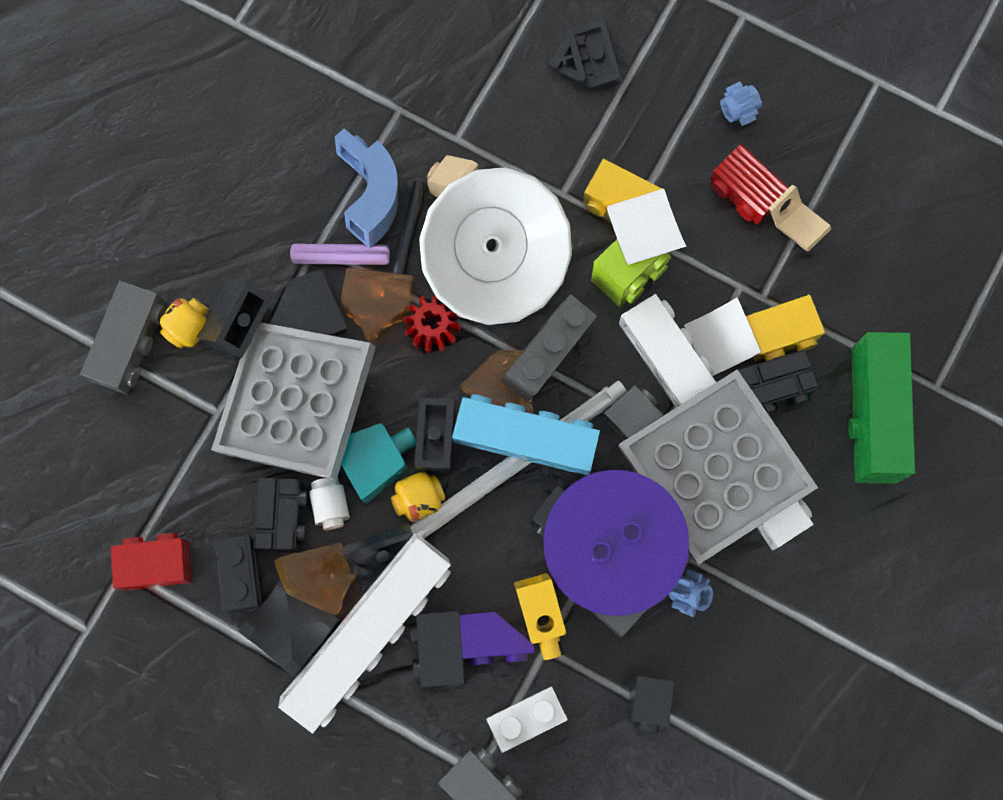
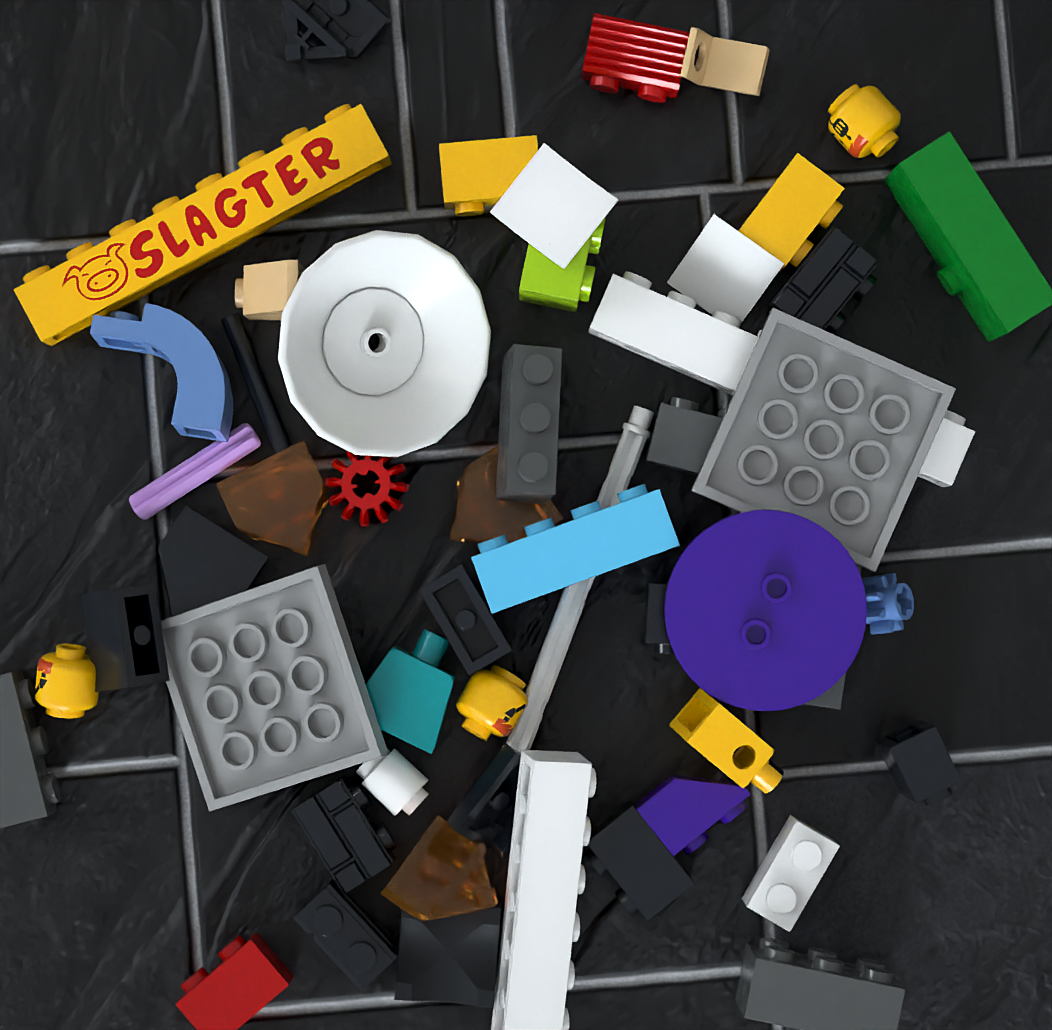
camera: 35 degrees left, 10 degrees up
(441, 121) = (203, 224): none -> yellow brick
(861, 304) = (864, 121): none -> yellow head

